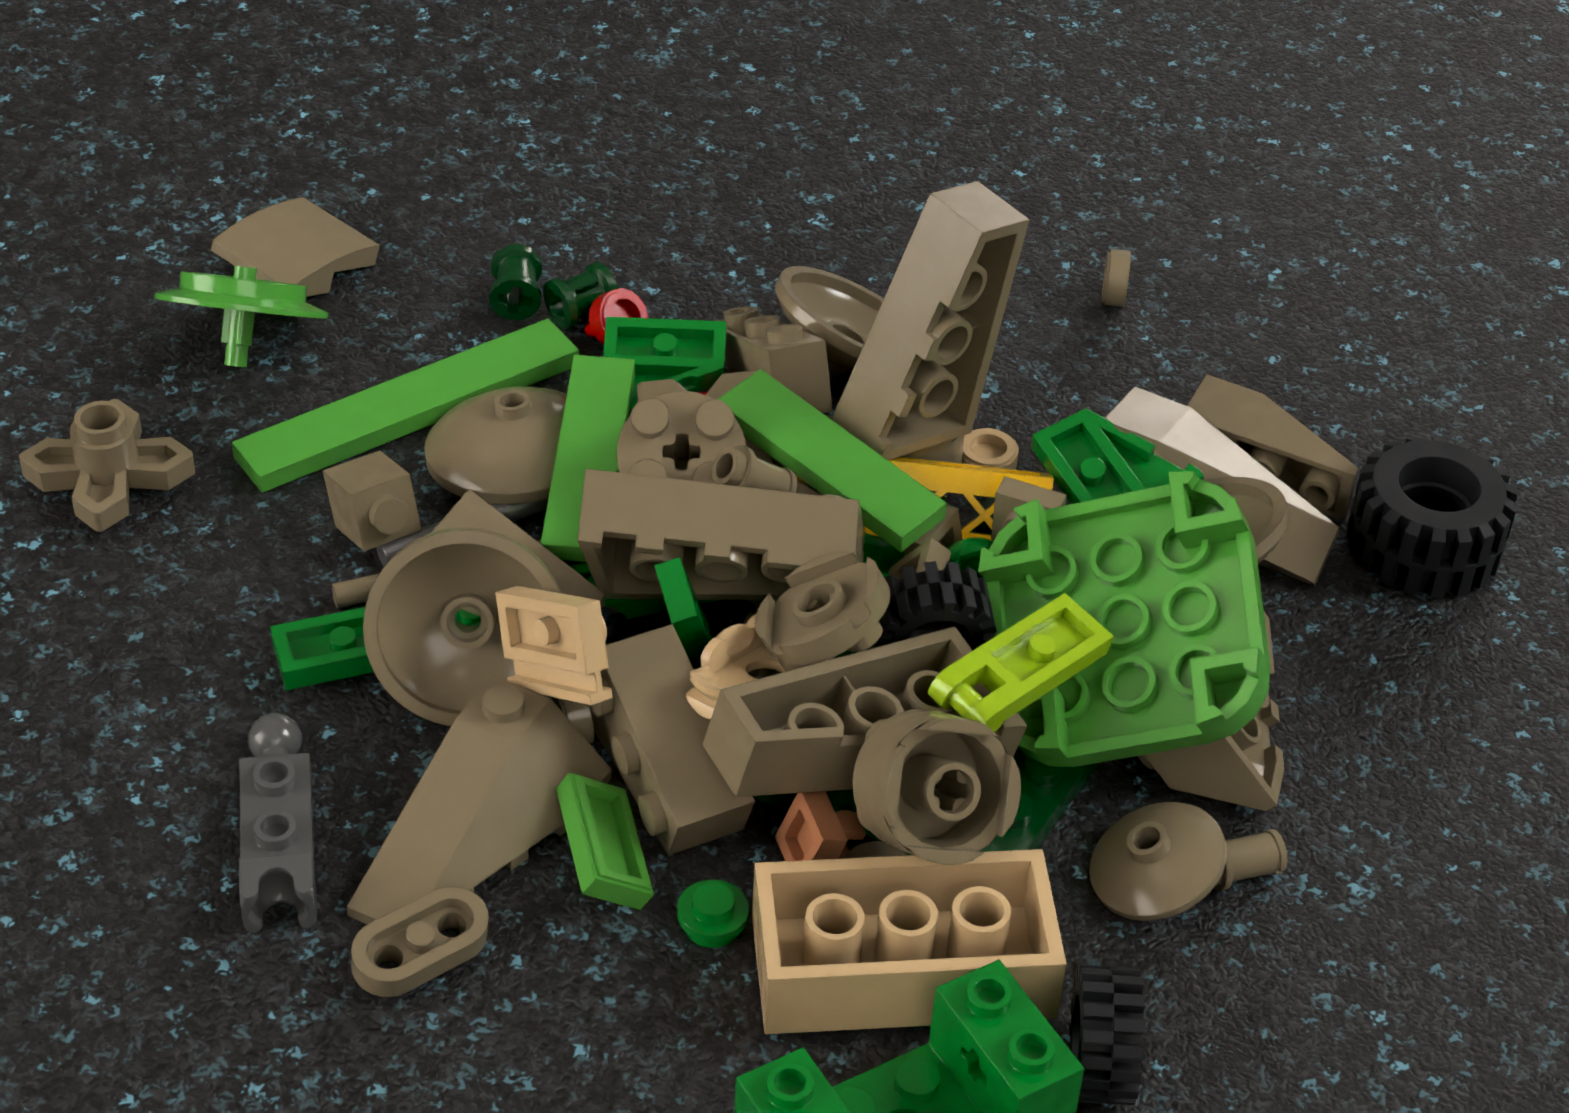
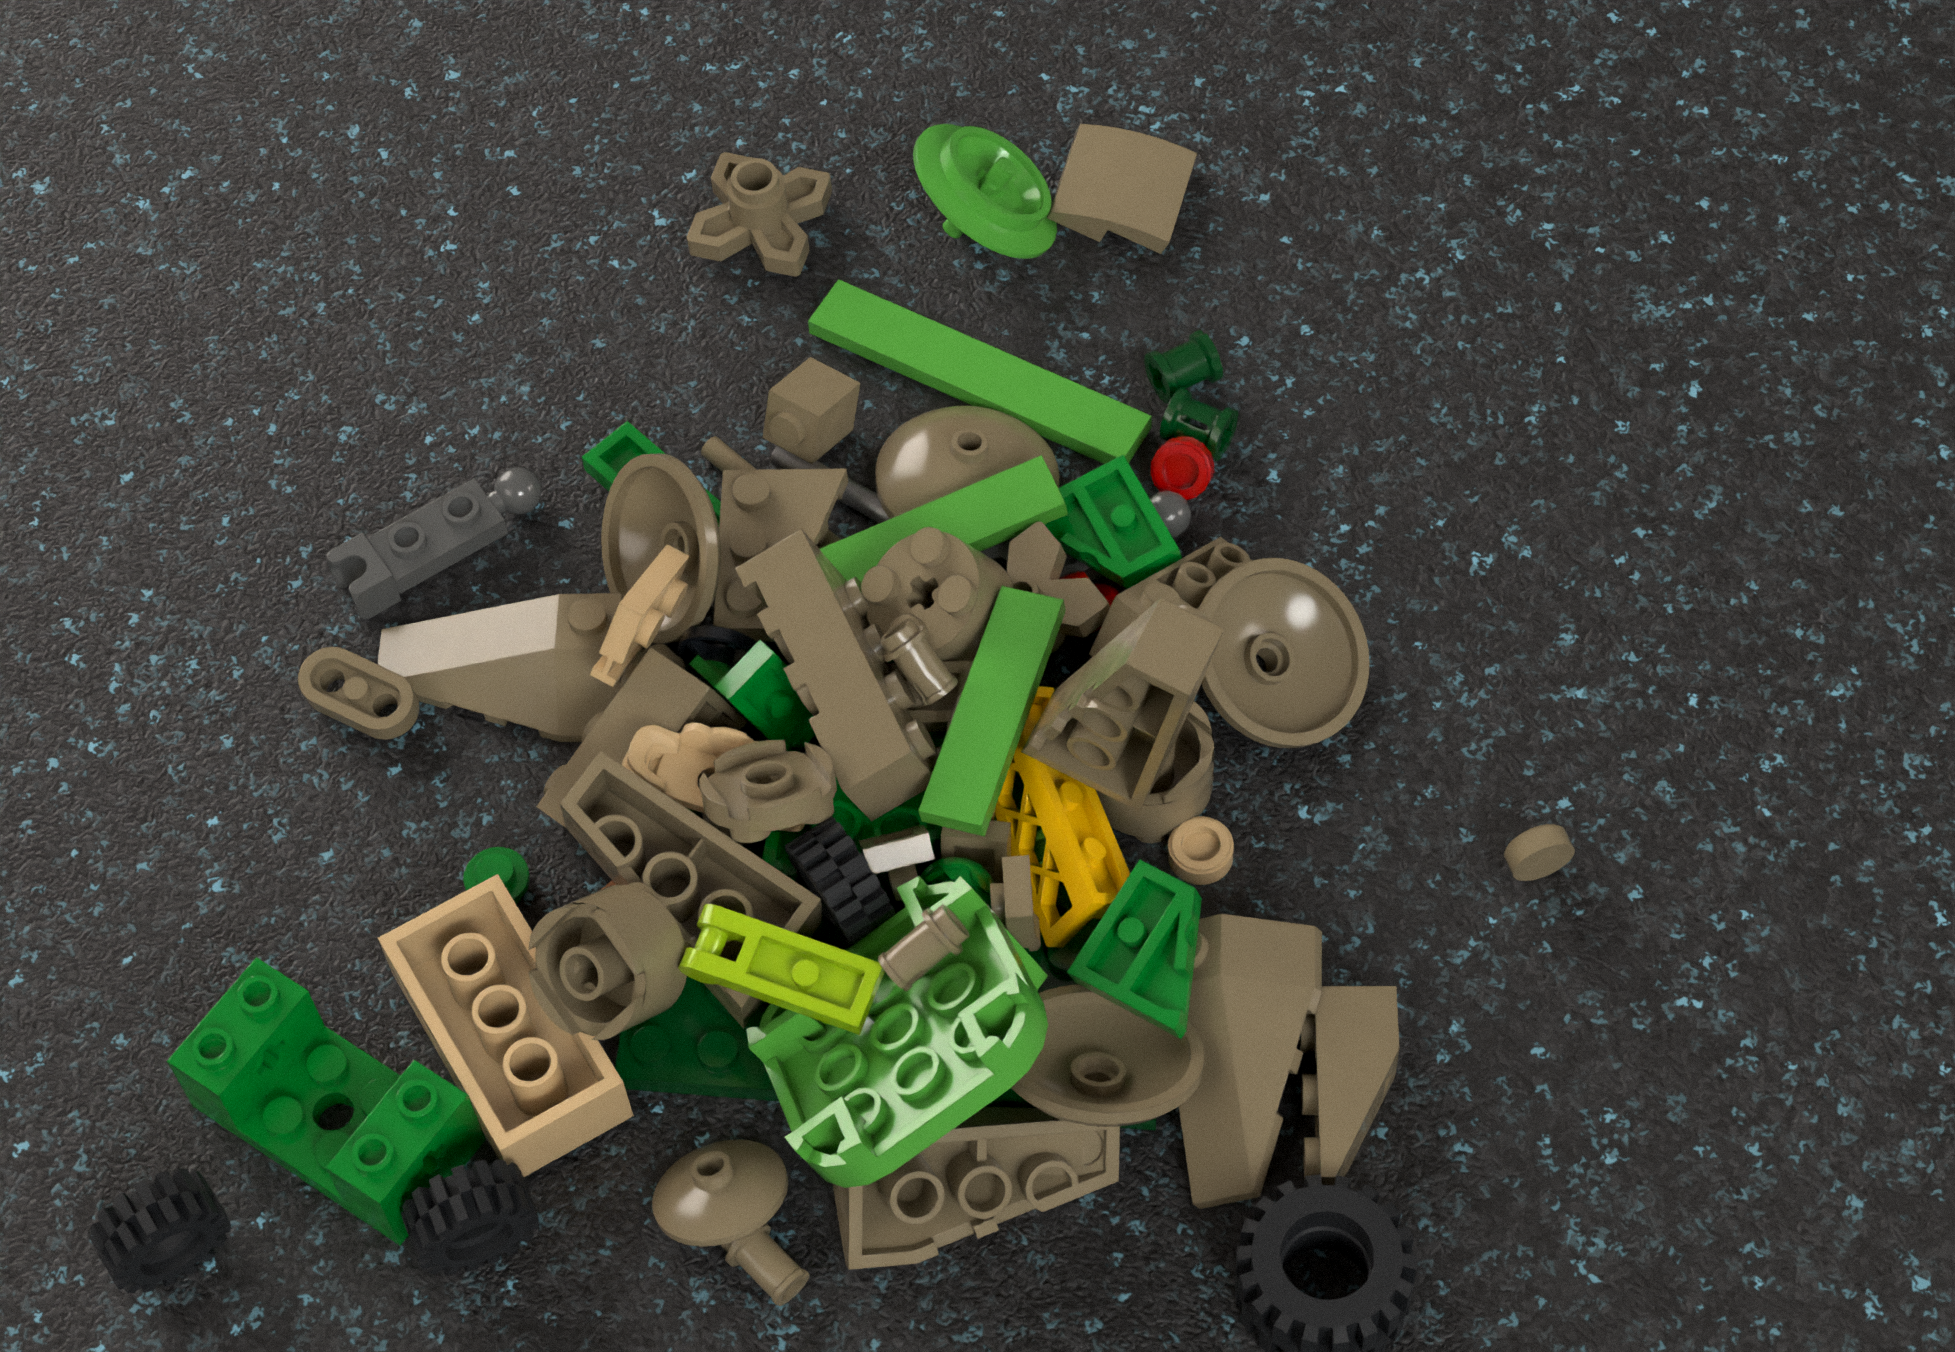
camera: 70 degrees right, 15 degrees up
(604, 841) = (520, 766): bright green tile -> none
(1069, 551) = (924, 946): none -> dark tan pin

